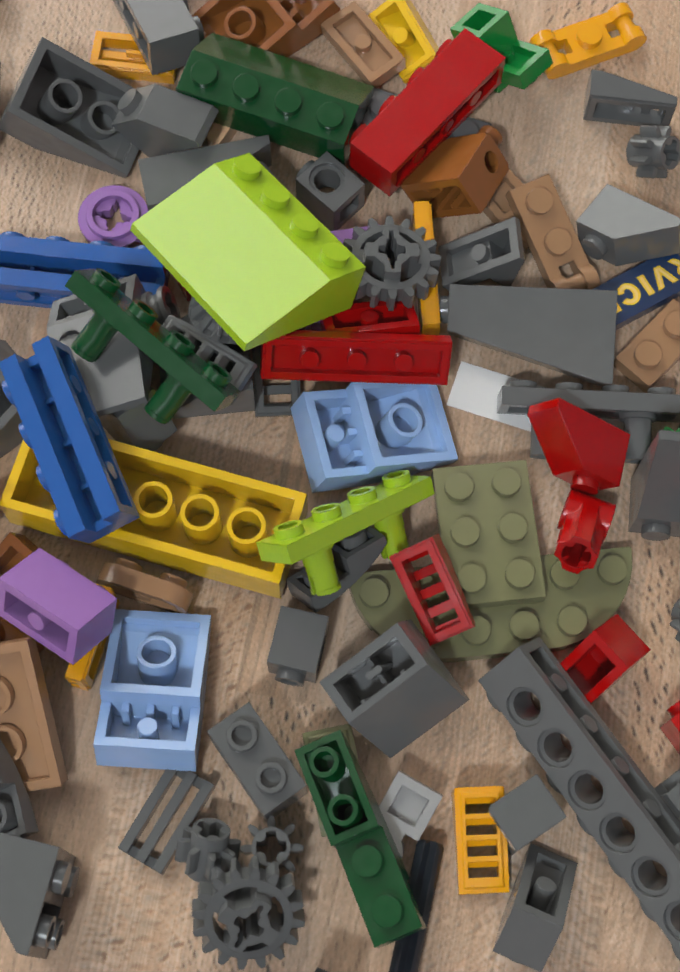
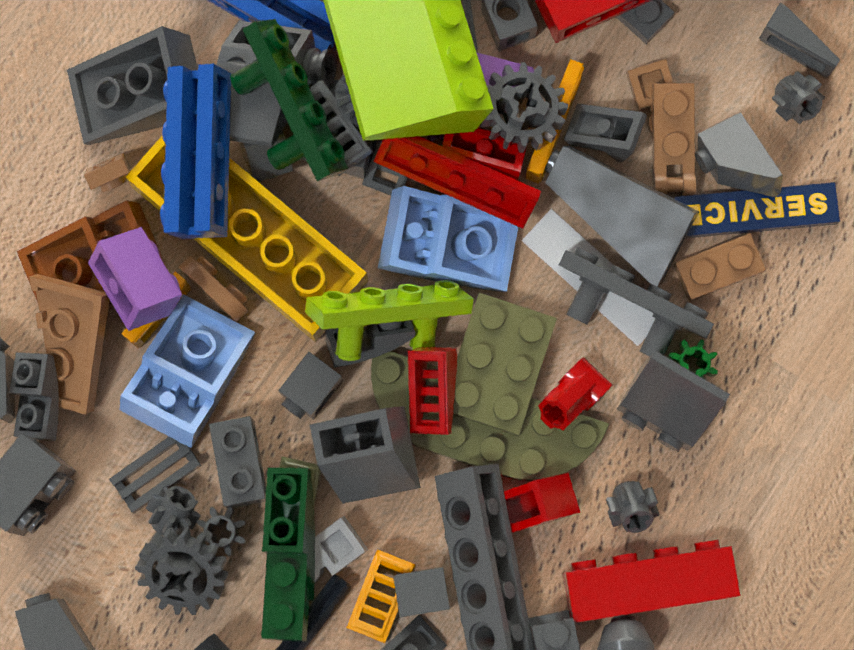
camera: 25 degrees right, 10 degrees up
(460, 174) = (621, 50): dark orange torso -> none
(579, 445) = (605, 327): red slope -> none

